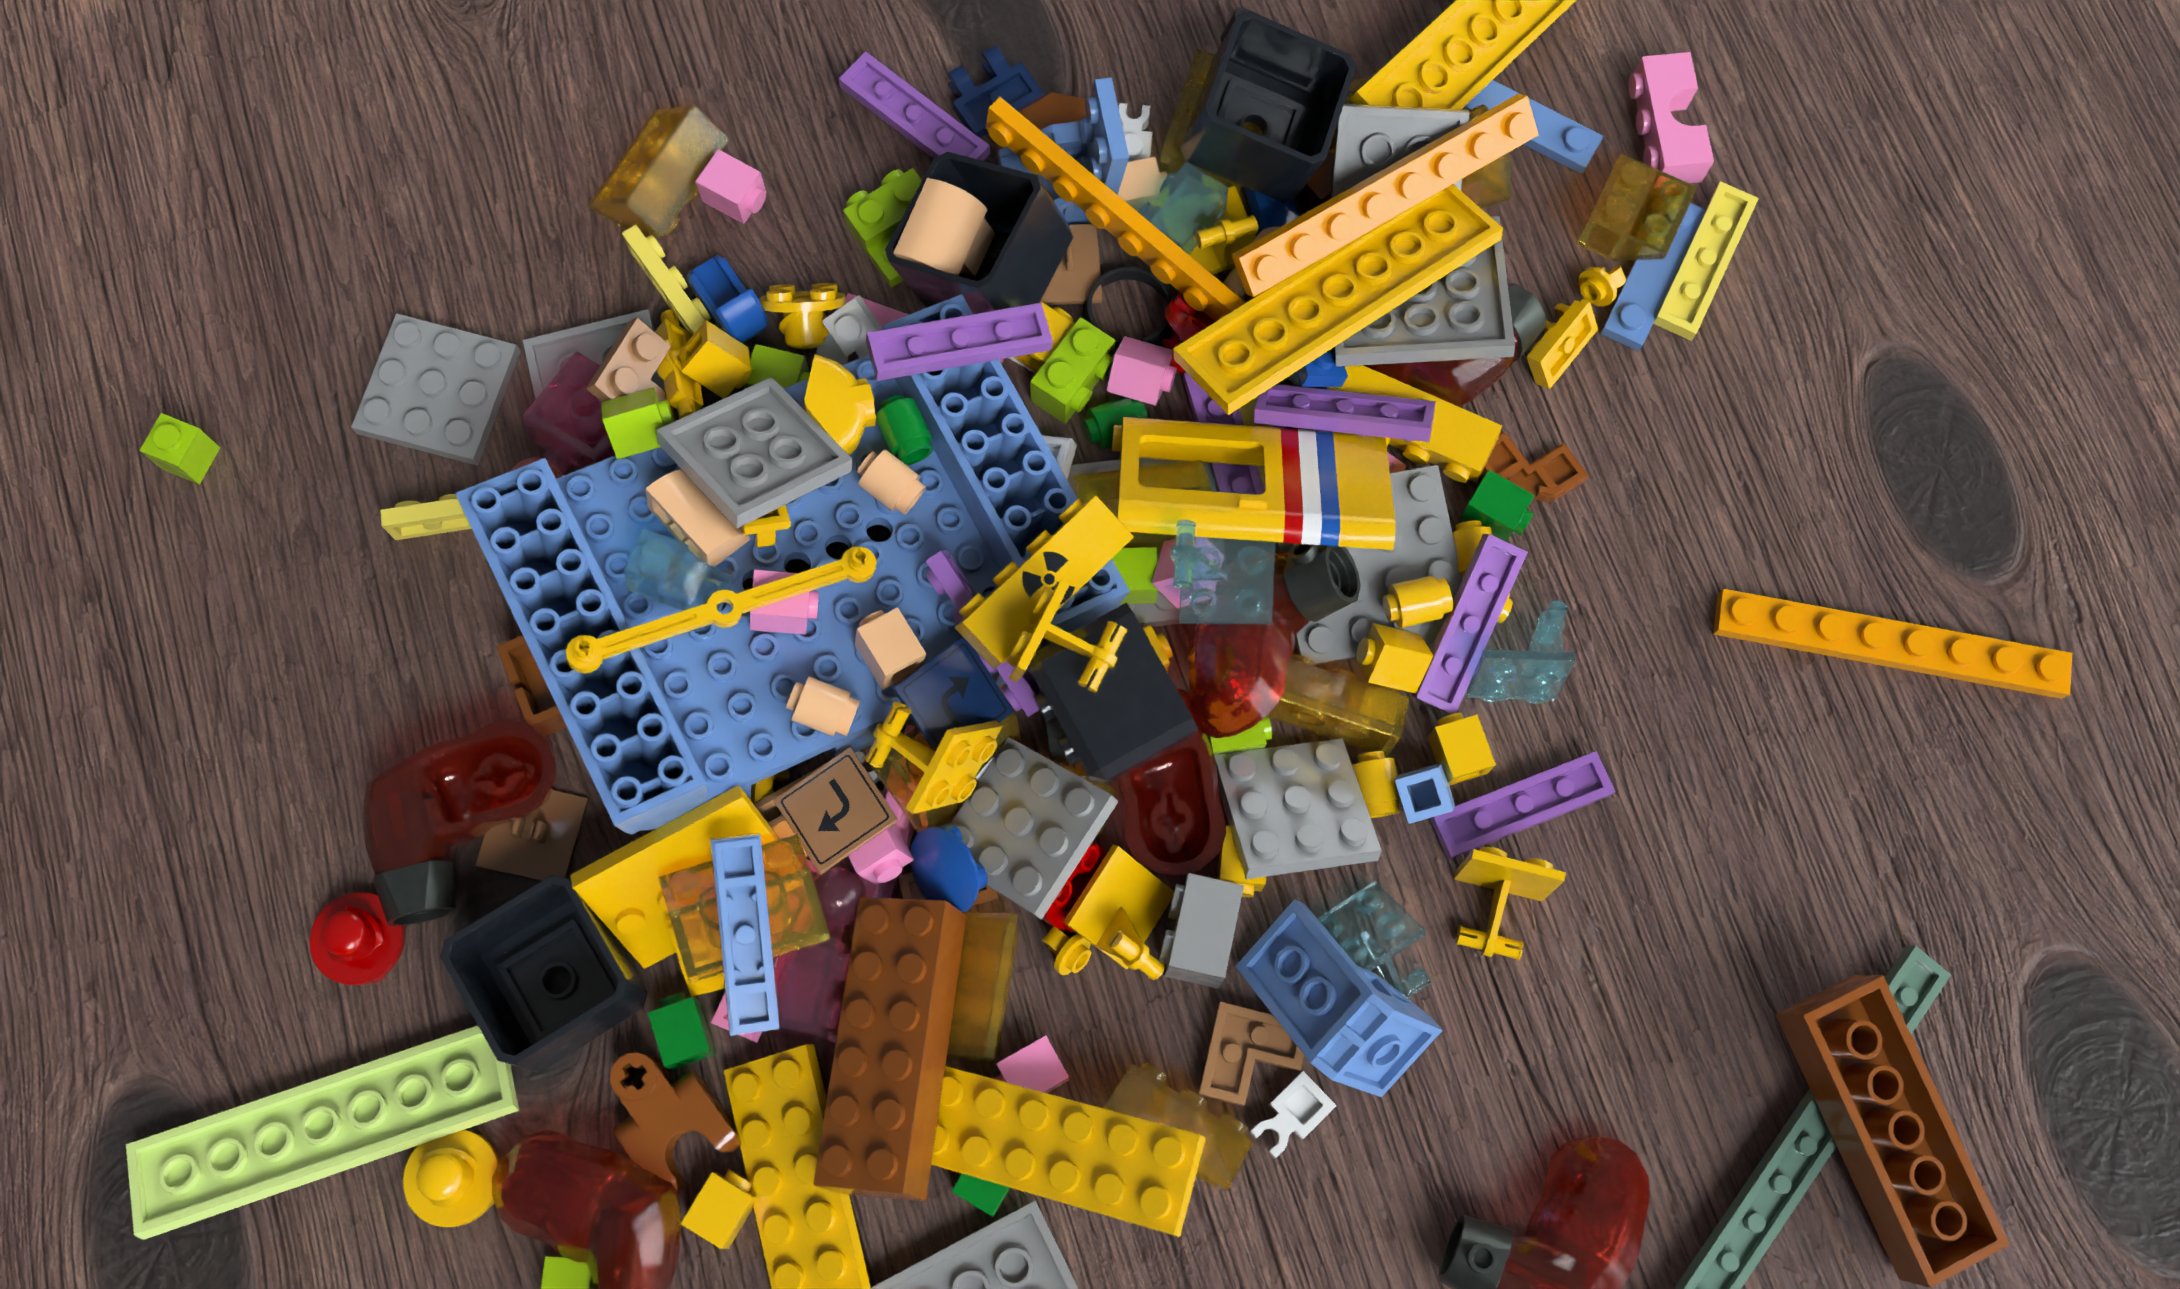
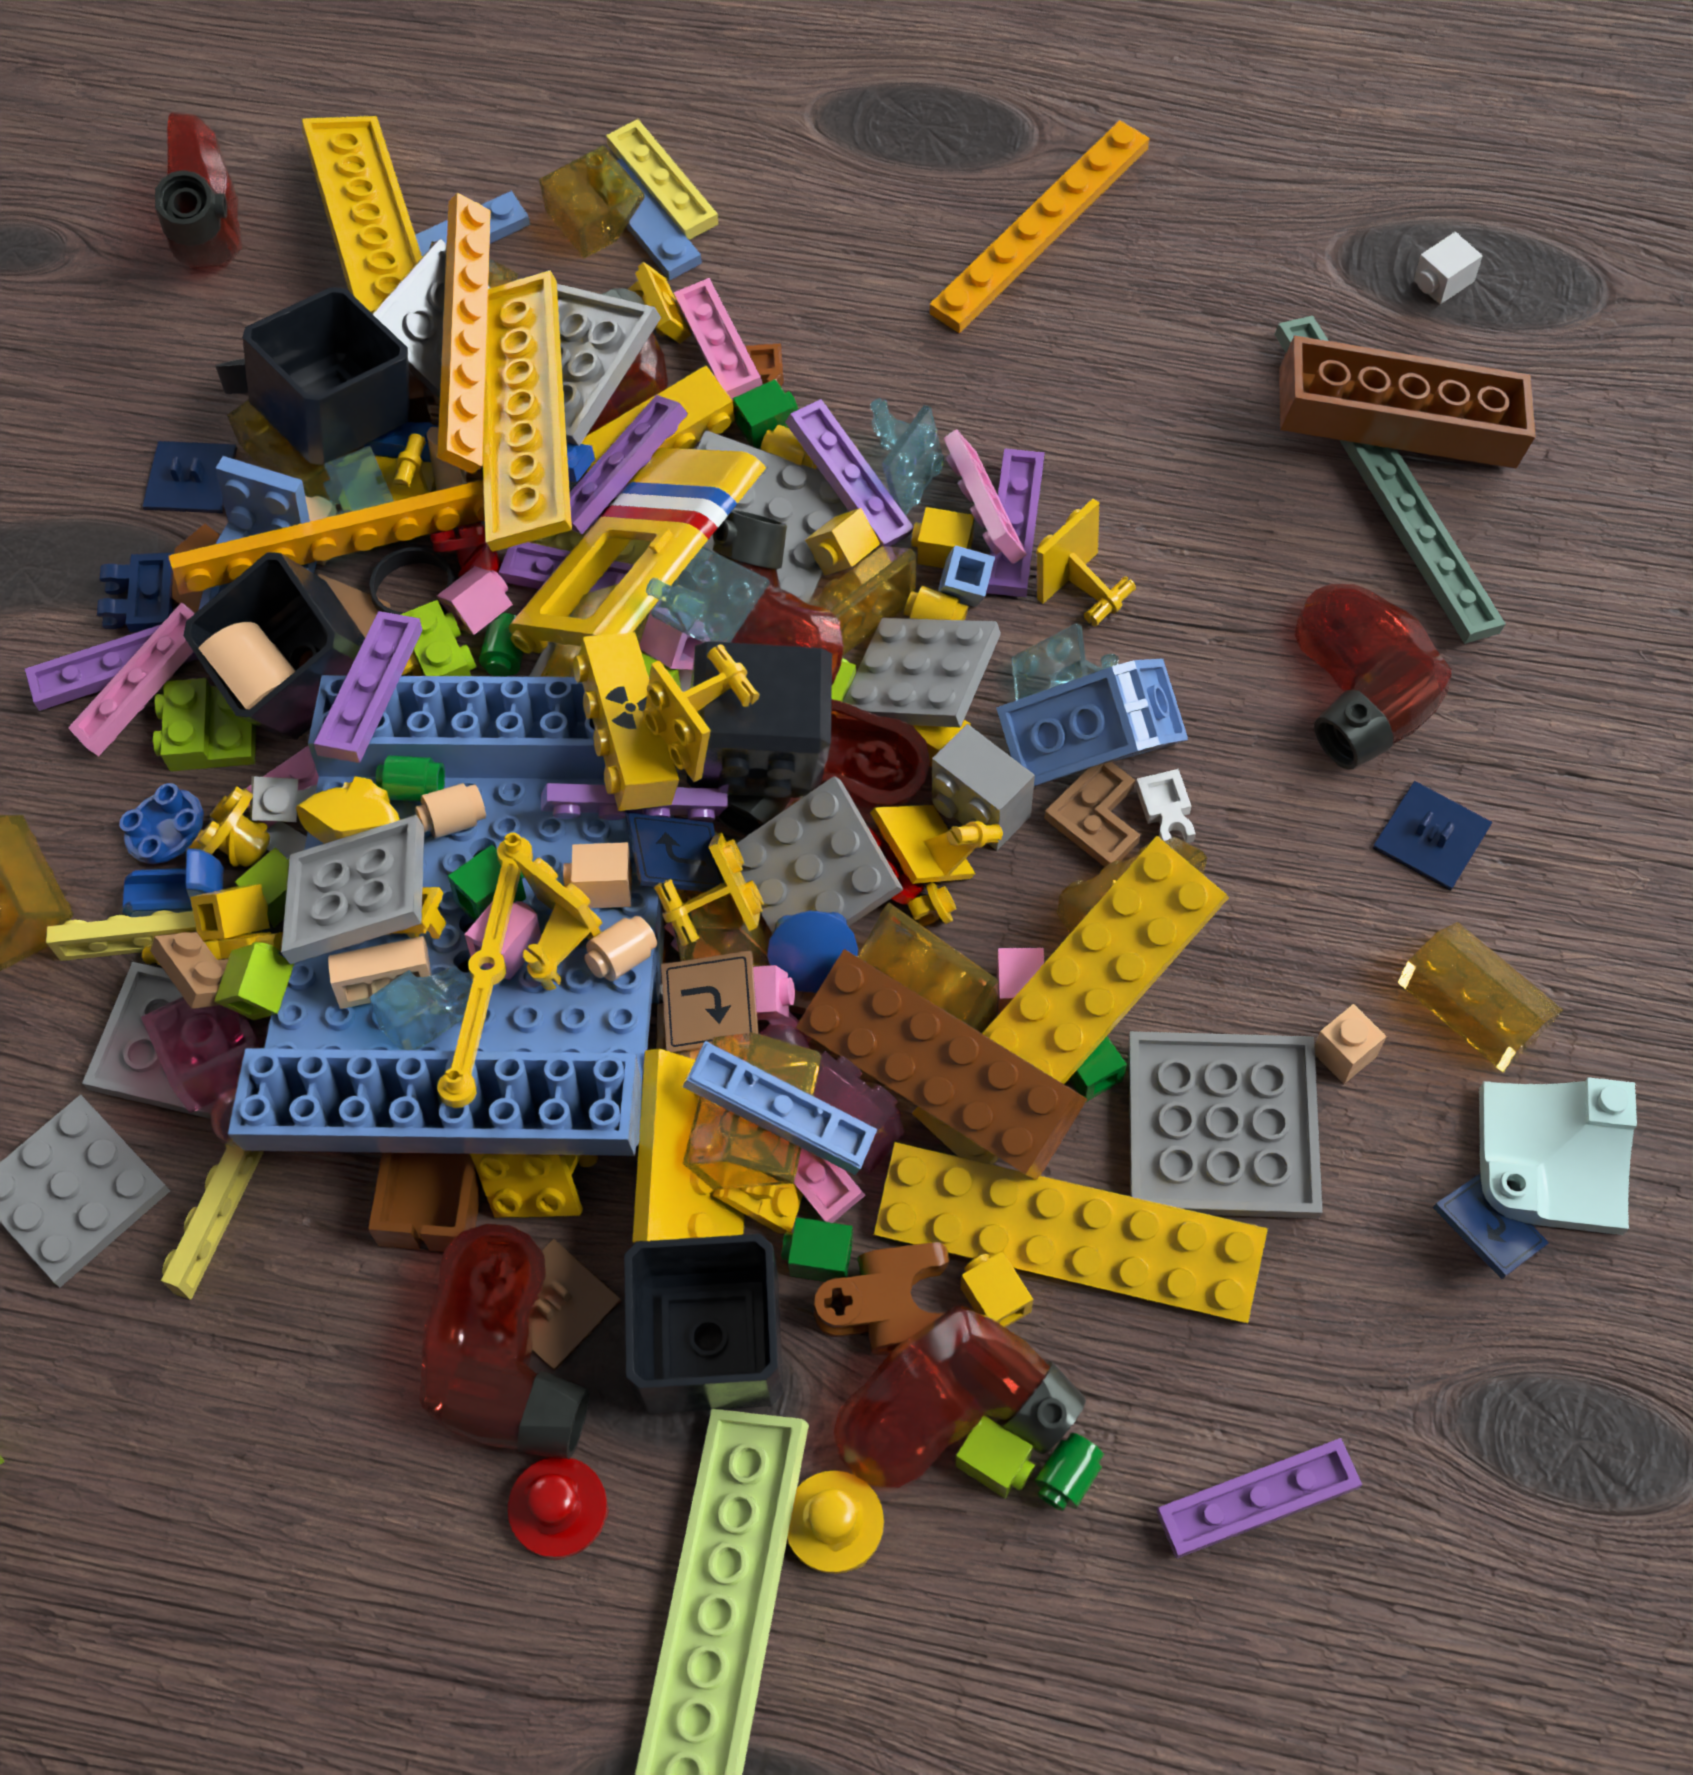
camera: 55 degrees left, 10 degrees down
(731, 187) = (68, 838): bright pink brick -> none
(786, 252) = (162, 825): none -> blue dish
(816, 650) = (567, 925): none -> yellow plate
(820, 547) = (476, 883): none -> green brick
(896, 145) = (134, 684): none -> bright pink plate
(1136, 57) = (186, 477): none -> dark blue piece
(1418, 601) = (809, 496): yellow brick -> none
(1522, 763) = (979, 489): none -> bright pink plate
(1551, 417) = (718, 338): none -> bright pink plate
(1600, 286) = (631, 254): yellow plate -> none
(1664, 86) = (502, 135): bright pink arch -> none
(2105, 1087) = (1447, 268): none -> white brick

